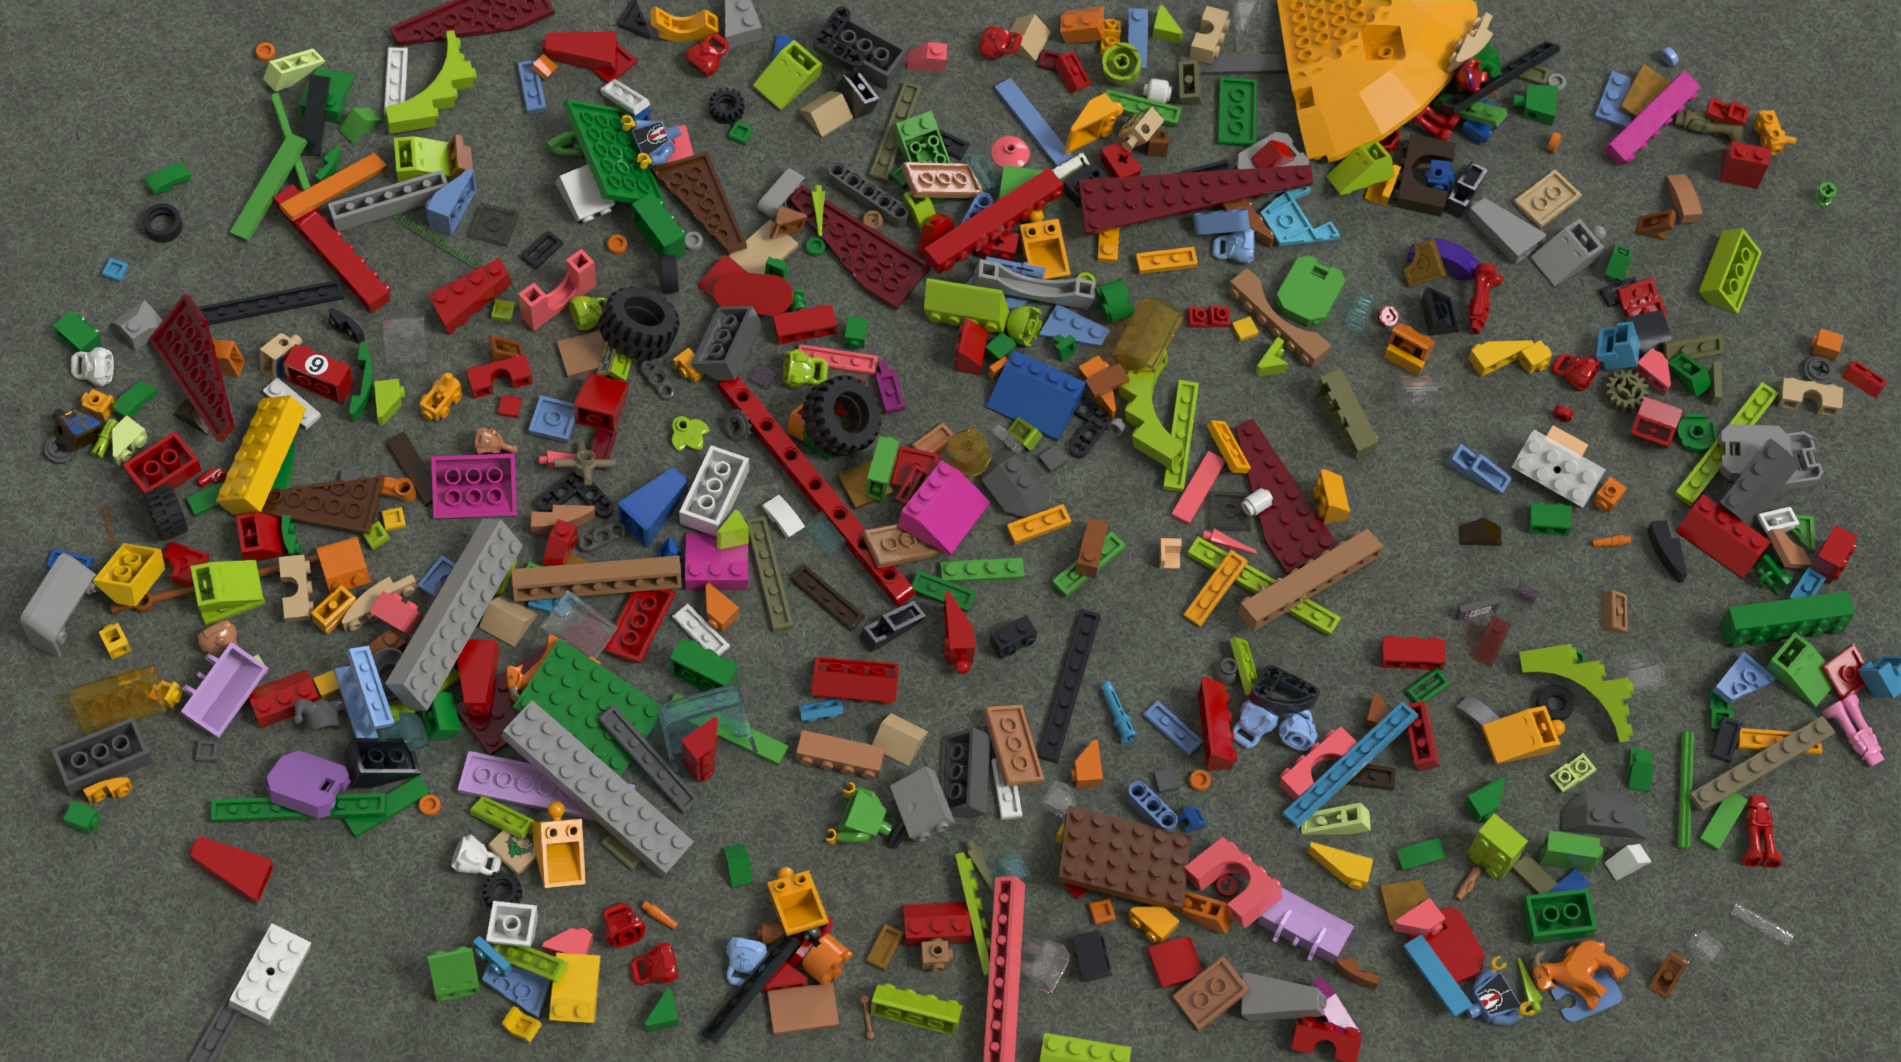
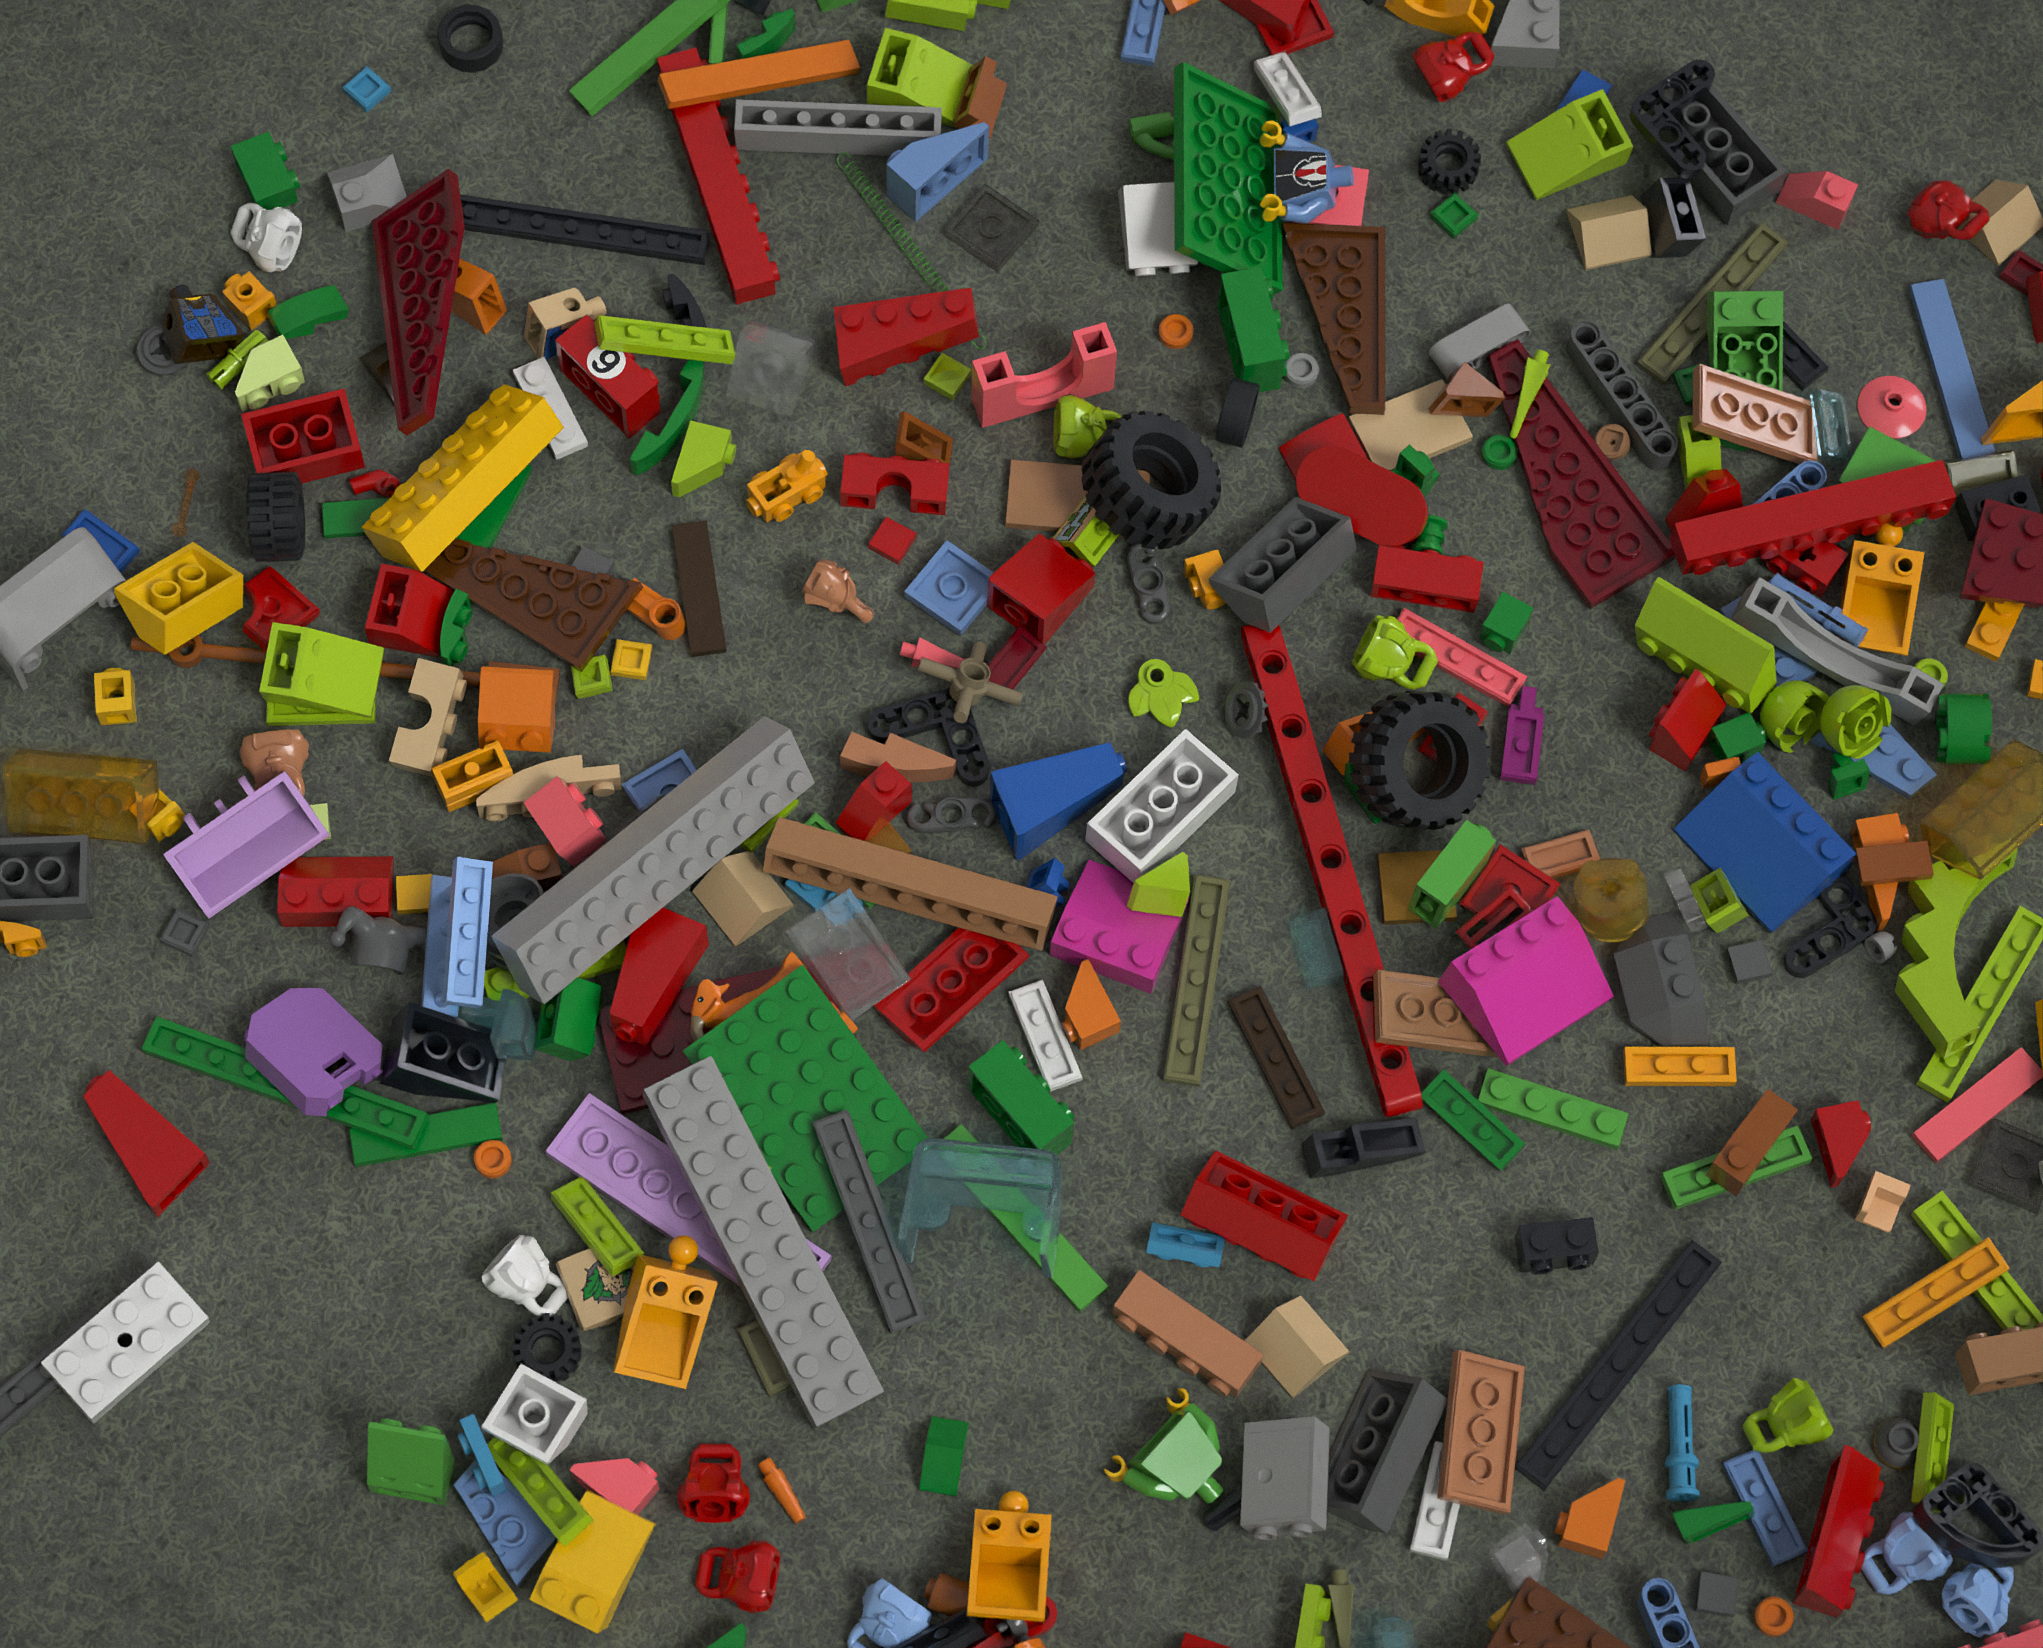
camera: 25 degrees right, 5 degrees up
(343, 342) = (664, 339): none -> lime tile
(474, 485) = (779, 652): dark pink slope -> none
(531, 261) = (1056, 308): black tile -> none
(701, 750) = (960, 1242): red slope -> none
(763, 376) = (1323, 641): clear purple tile -> none
(783, 515) = (1259, 891): white slope -> none
(959, 639) = (1463, 1218): red slope -> none
(1057, 315) = (1854, 720): none -> lime cylinder
(1135, 529) = (1840, 1135): none -> red slope
(1144, 747) = (1705, 1521): none -> green slope
(1169, 677) = (1793, 1418): none -> lime piece
(1221, 540) = (1978, 1210): coral piece -> none

